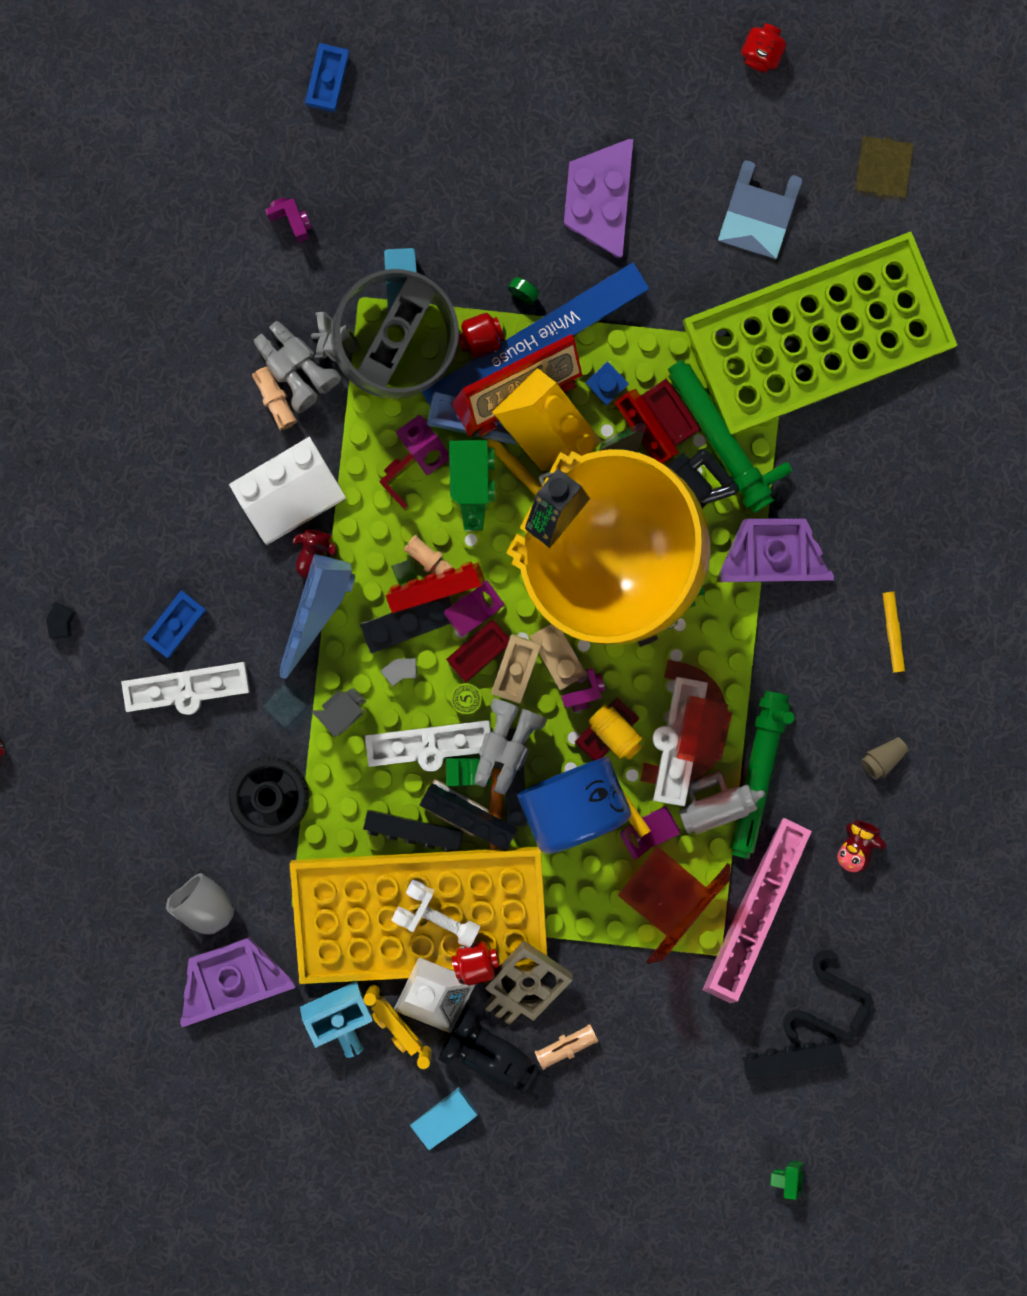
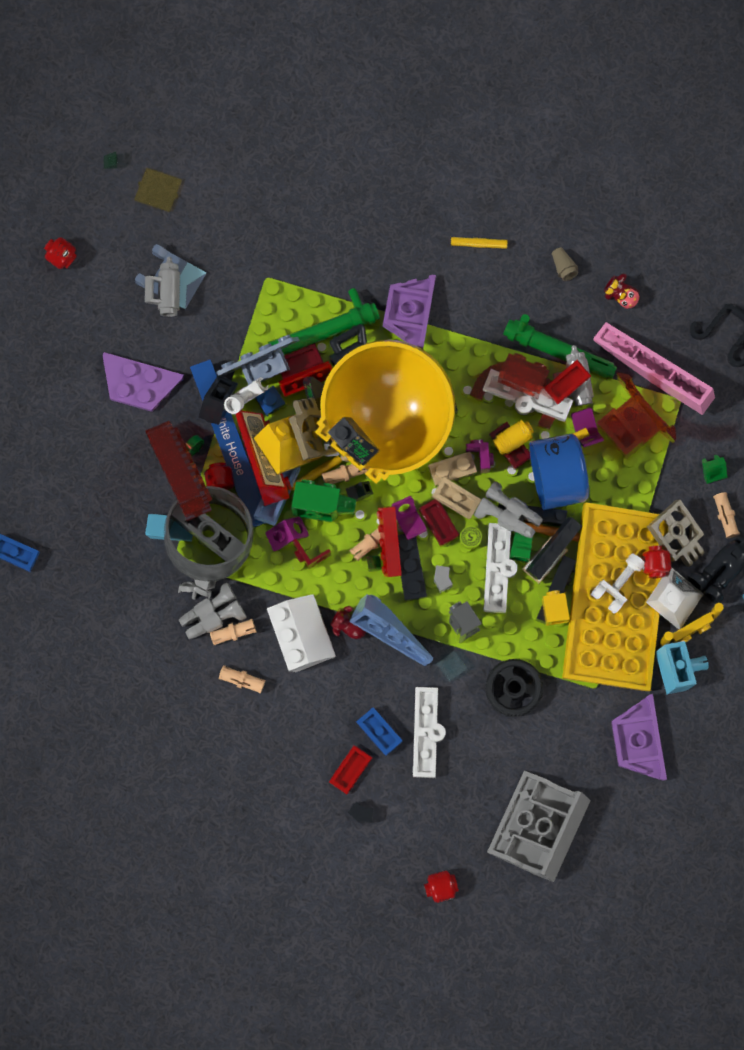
camera: 80 degrees left, 10 degrees down
(86, 864) = (539, 826): none -> light grey piece
(116, 595) = (350, 769): none -> red tile
(205, 909) = (586, 743): light grey piece -> none
(212, 423) = (241, 679): none -> light nougat pin
(298, 221) = (112, 591): magenta bracket -> none
(382, 834) = (555, 608): none -> yellow brick
(471, 273) = (179, 470): none -> clear red brick
(499, 532) = (359, 491): none -> black piece
(517, 497) = (342, 473): none -> light nougat pin
(582, 332) = (235, 402): none -> white bar
(589, 432) = (307, 410): none -> dark tan piece
(590, 309) = (213, 402): none -> black slope
(627, 1019) = (714, 469): none -> green tile
(652, 363) = (264, 364): none -> sand blue bracket
(707, 794) = (567, 382): none -> red tile
(739, 208) = (168, 289): none -> light grey piece
(816, 284) = (277, 259): lime piece -> none
(913, 92) = (110, 161): none -> clear green piece

